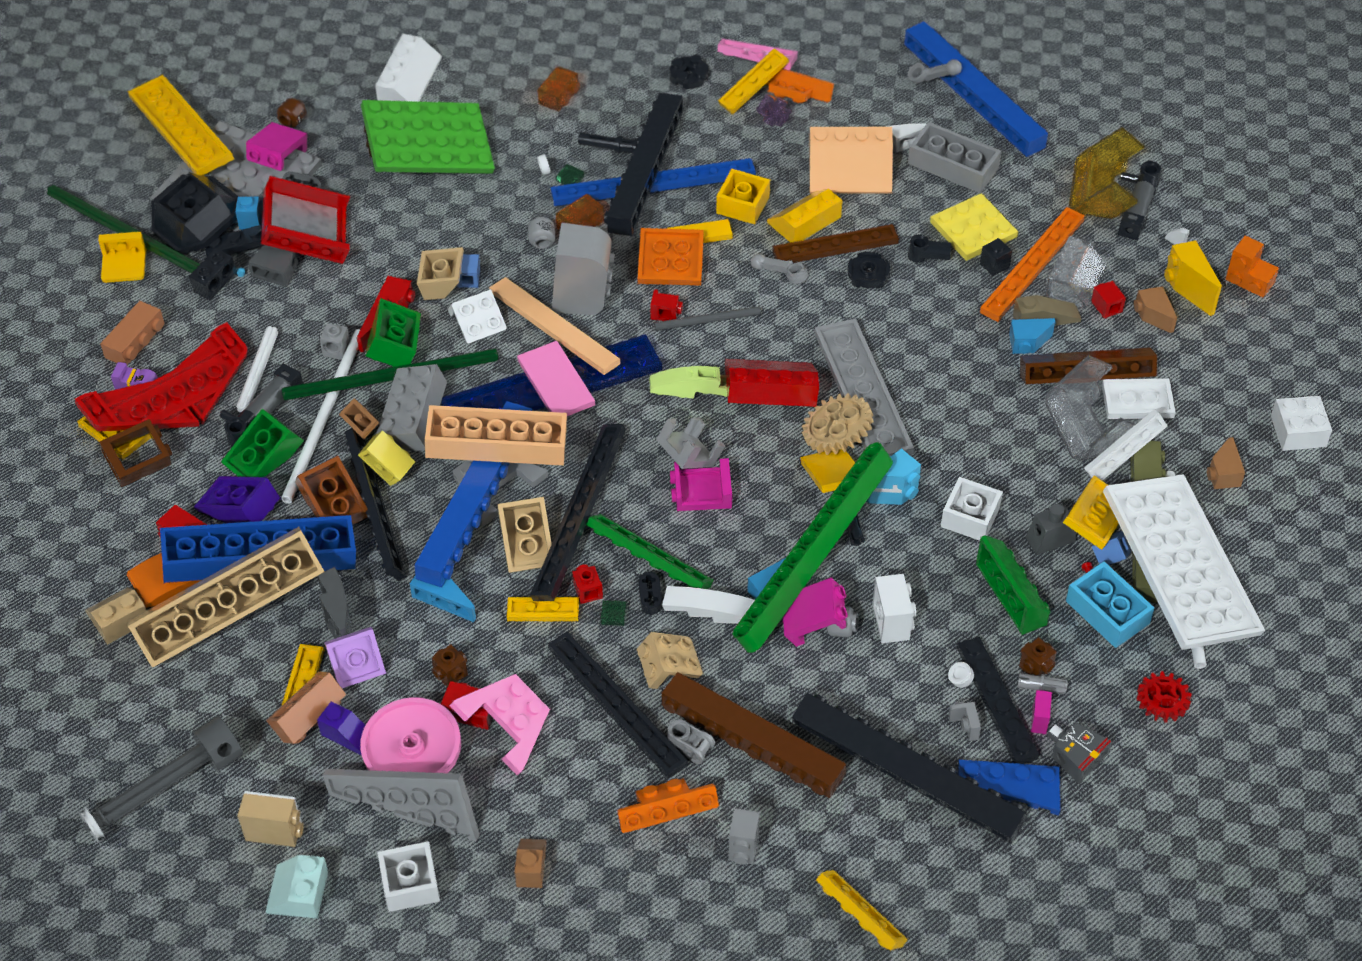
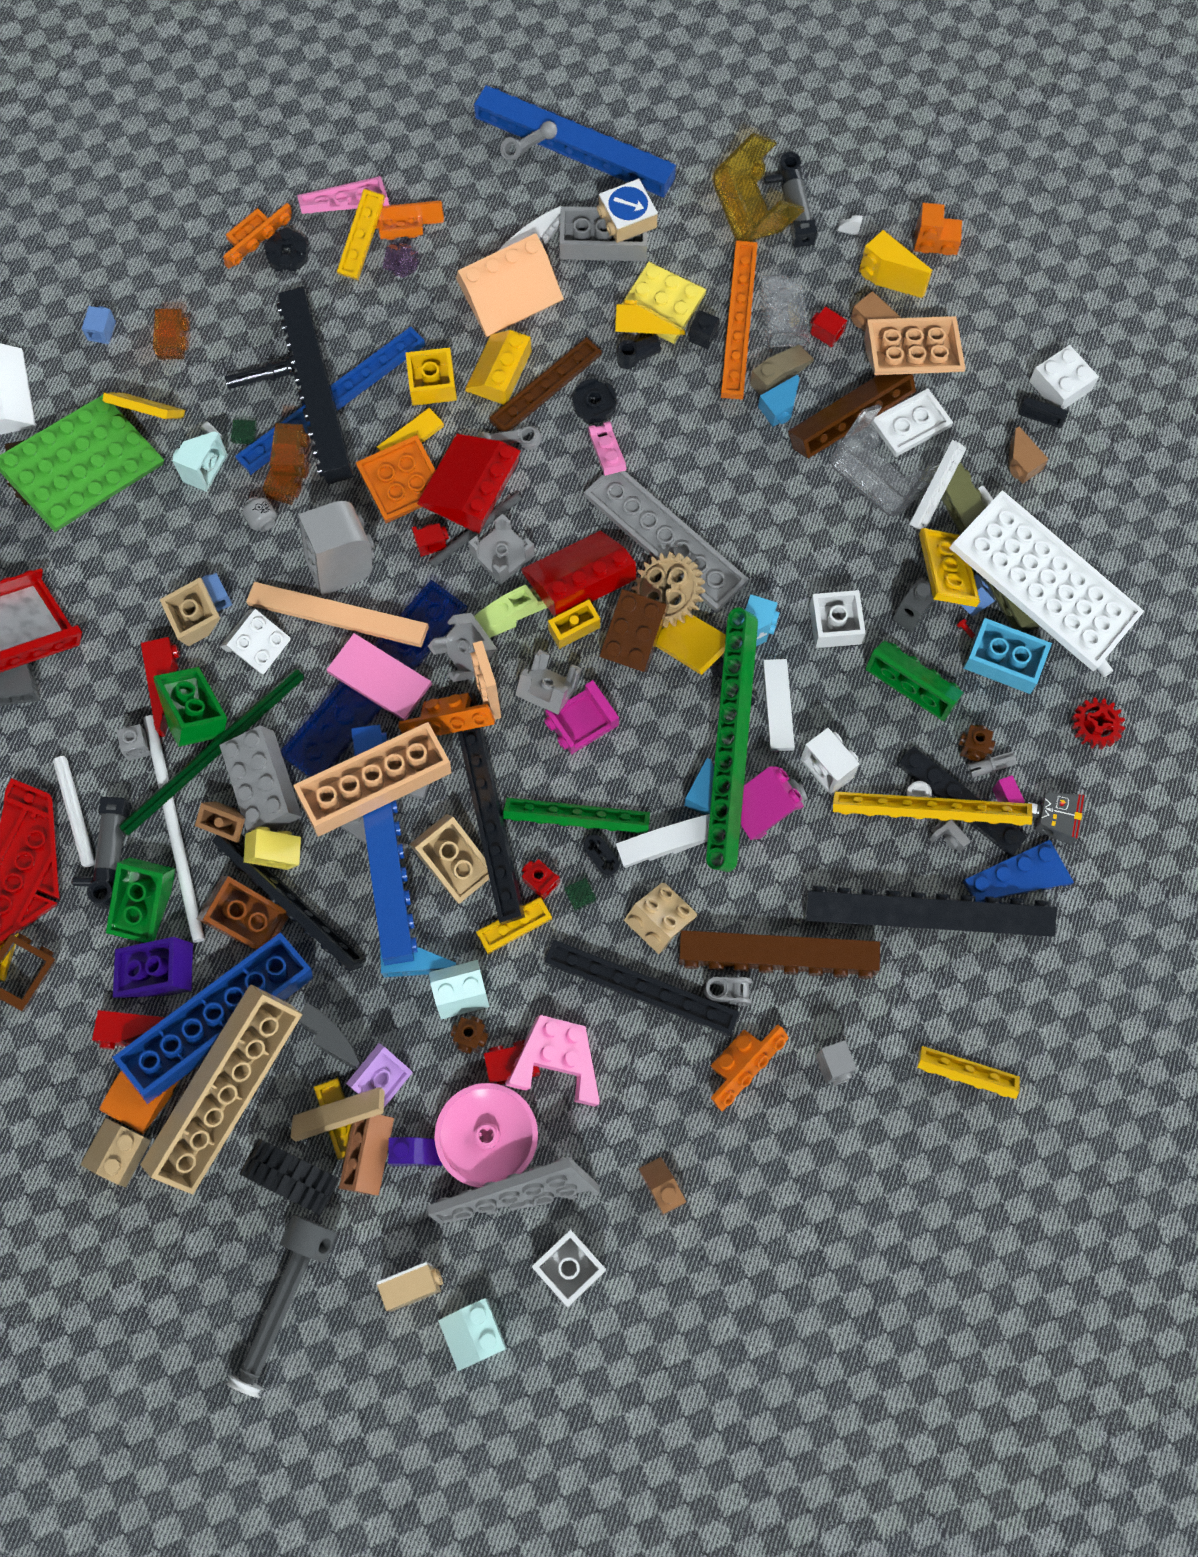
camera: 30 degrees left, 20 degrees up
(233, 684) = (289, 1176): none -> black tyre
(303, 665) = (338, 1114): none -> tan tile
(462, 627) = (458, 989): none -> light aqua slope
(505, 125) = (143, 405): none -> yellow tile
(508, 61) = (98, 324): none -> medium blue brick
(521, 176) = (200, 460): none -> light aqua slope
(592, 194) = (289, 449): none -> clear orange brick
(596, 432) = (450, 715): none -> orange bracket
(635, 411) = (485, 679): none -> light nougat plate
(640, 390) = (459, 645): none -> light grey panel
(670, 48) = (252, 231): none -> orange bracket
(718, 341) = (502, 550): none -> light grey panel
(726, 280) = (470, 480): none -> red slope
(741, 413) = (574, 624): none -> yellow brick
(787, 437) = (634, 630): none -> reddish brown brick
(855, 305) = (607, 449): none -> bright pink plate
(879, 553) = (778, 705): none -> white tile
(943, 226) = (641, 319): none -> yellow slope
(970, 689) = (936, 808): none -> yellow plate
(979, 142) = (627, 211): none -> piece
(1174, 337) = (914, 345): none -> light nougat slope
(1266, 440) = (1043, 412): none -> black tile

